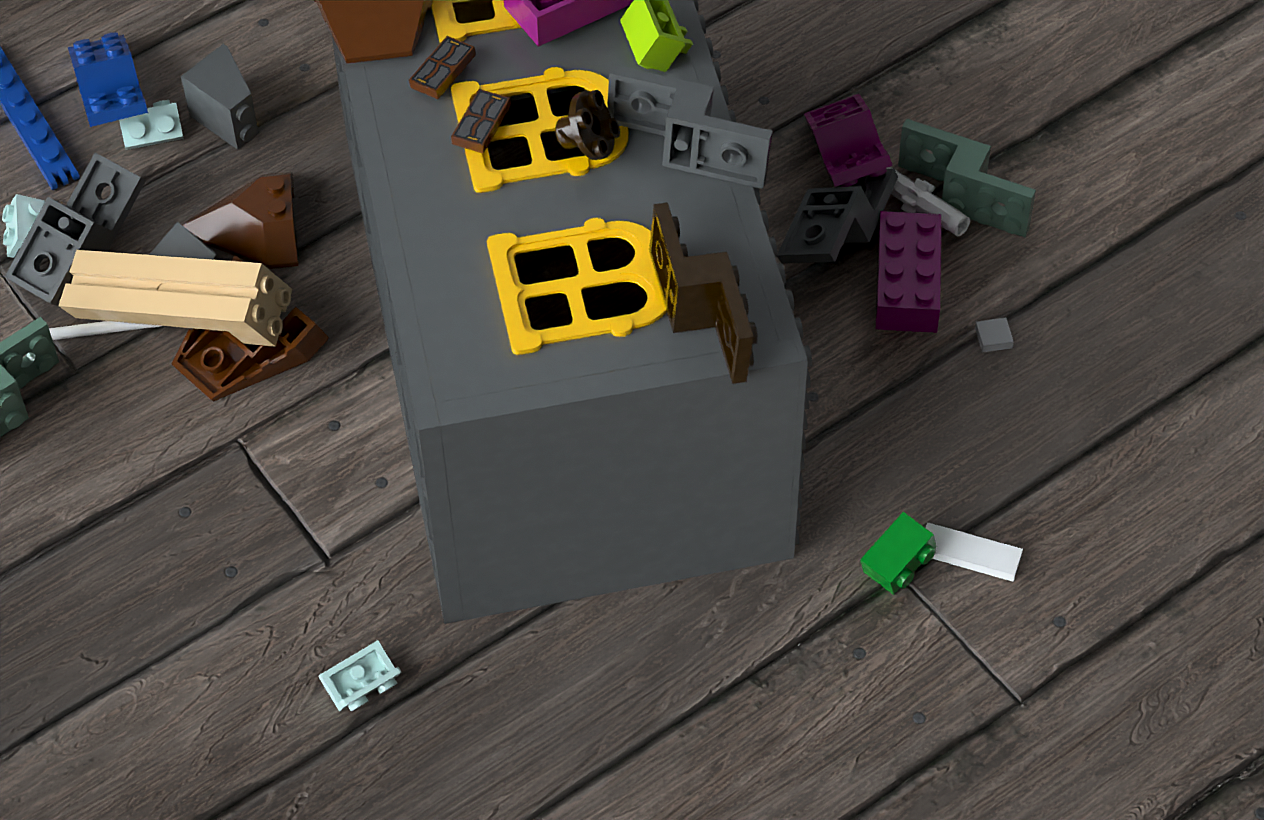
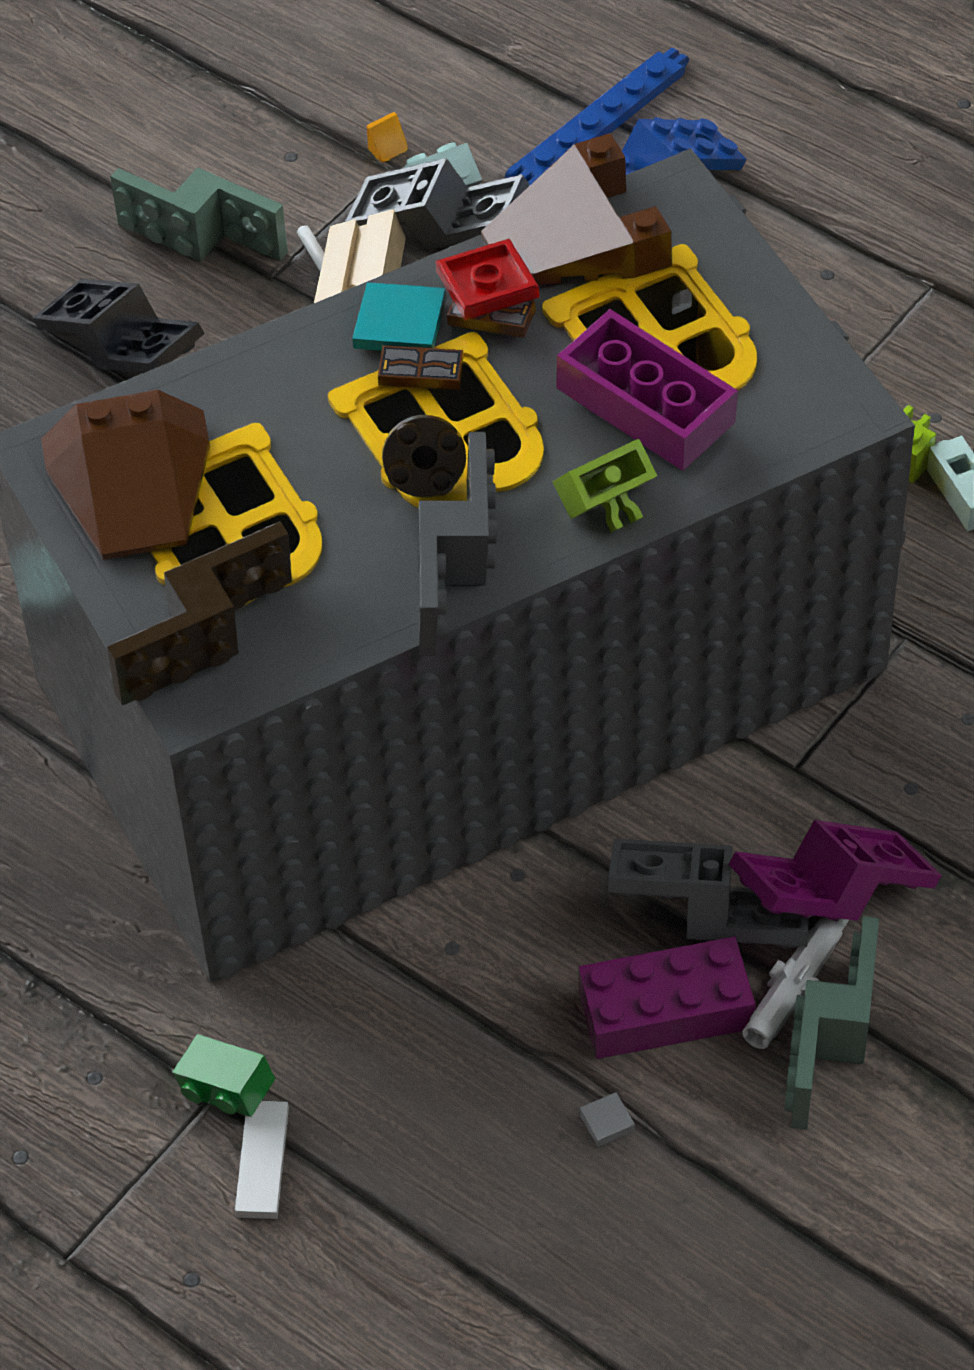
camera: 75 degrees right, 0 degrees up
(95, 477) = (118, 326): none -> black bracket
(412, 57) = (487, 279): none -> red tile
(419, 124) = (398, 316): none -> teal tile
(515, 328) = (130, 469): none -> reddish brown wedge

